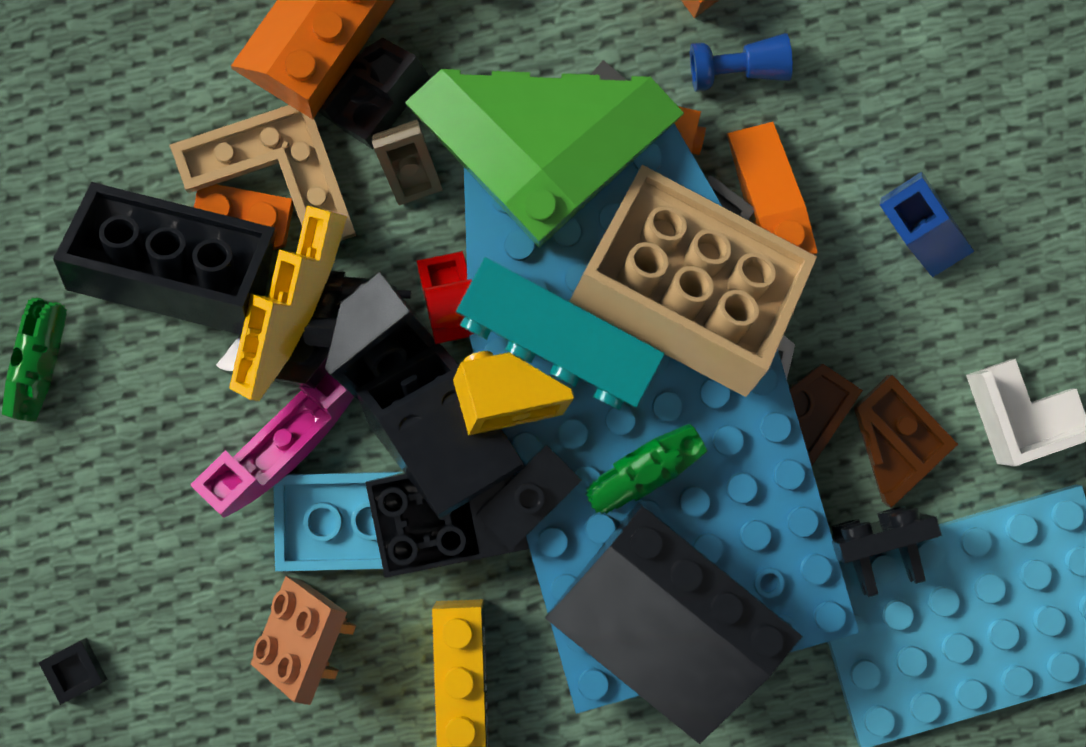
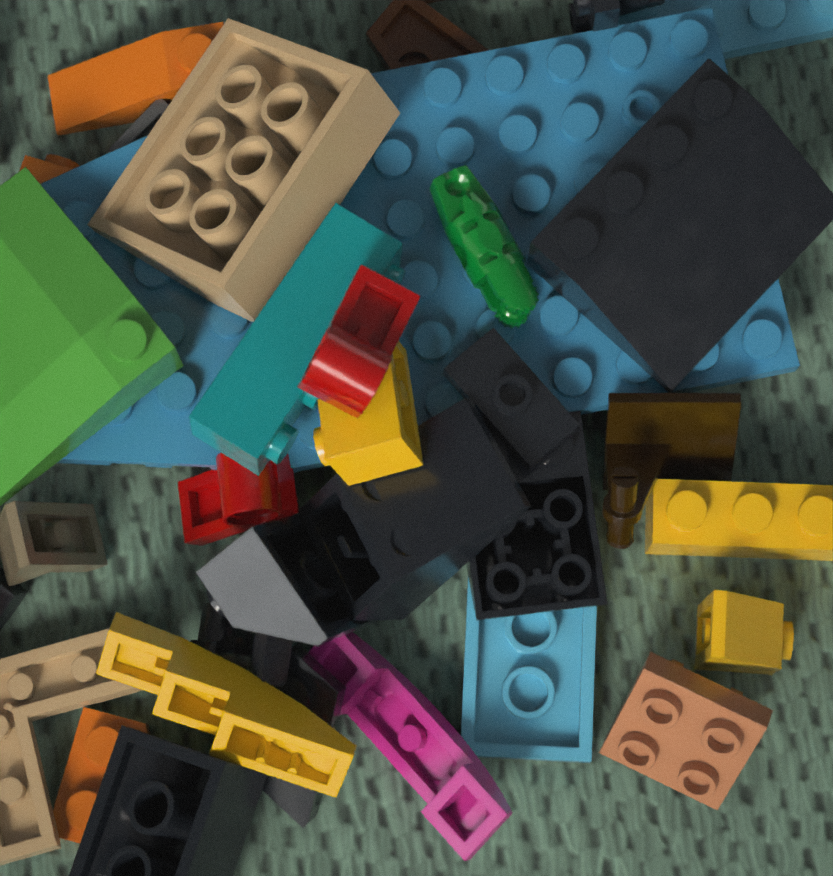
camera: 90 degrees left, 10 degrees down
(372, 677) = (741, 634): none -> yellow slope
(511, 610) = (662, 439): none -> dark brown plate
(549, 381) = (359, 342): none -> red plate

